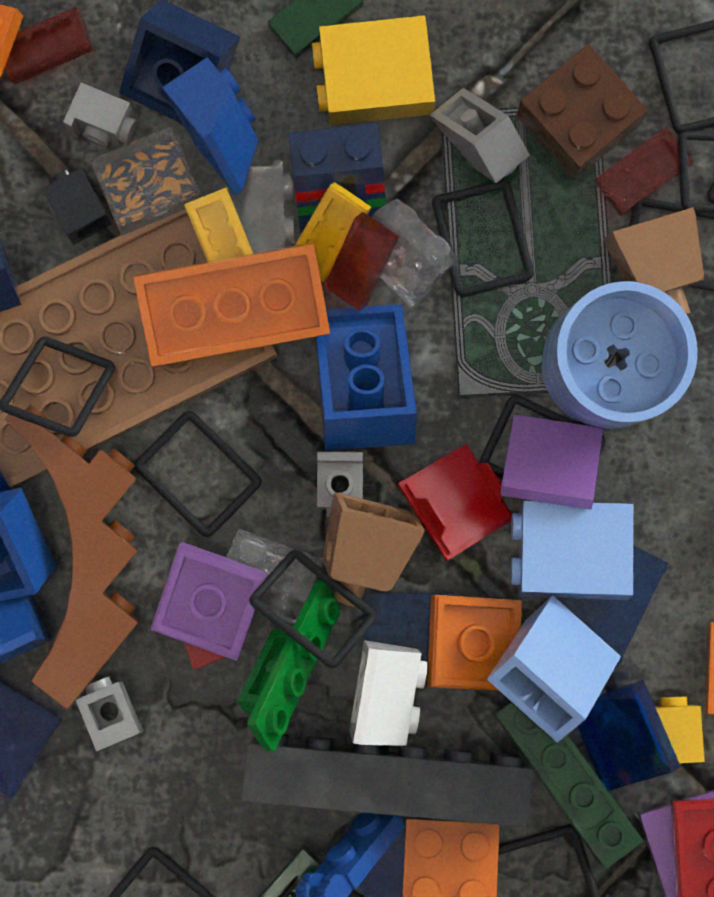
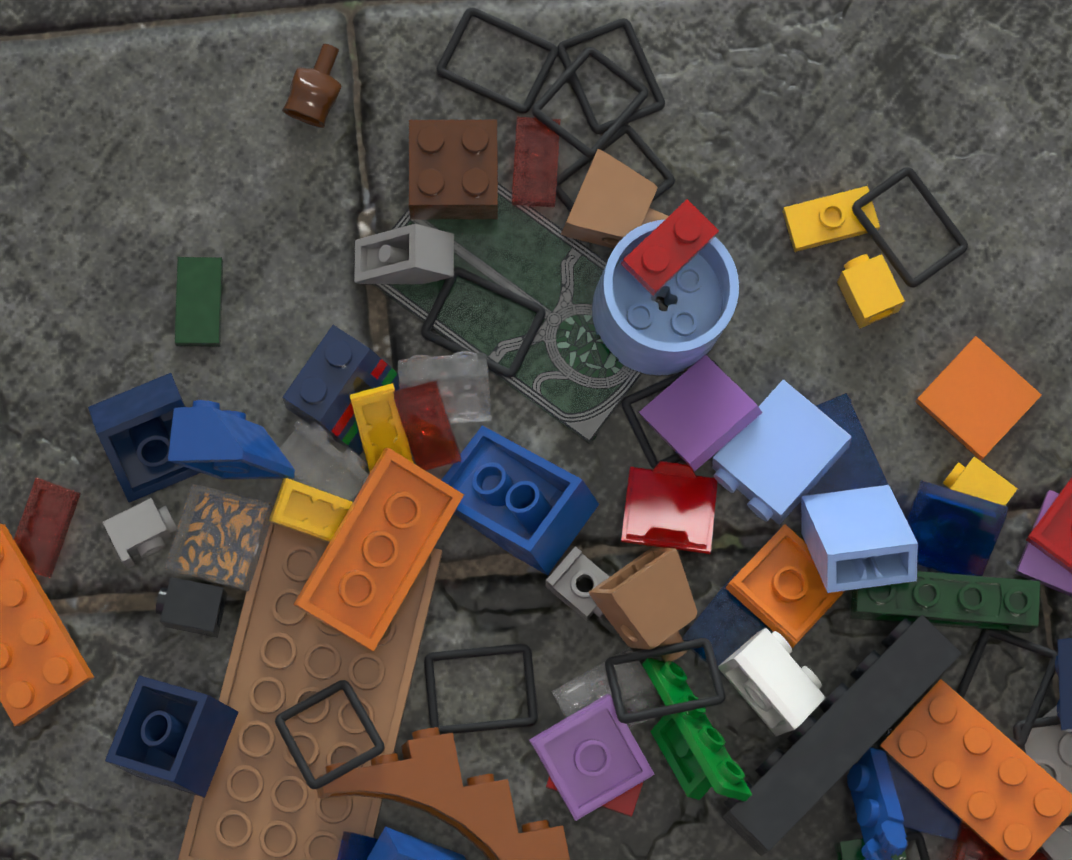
camera: 55 degrees left, 5 degrees down
(374, 70) = (285, 294): yellow brick -> none
(656, 324) = (670, 247): none -> red plate

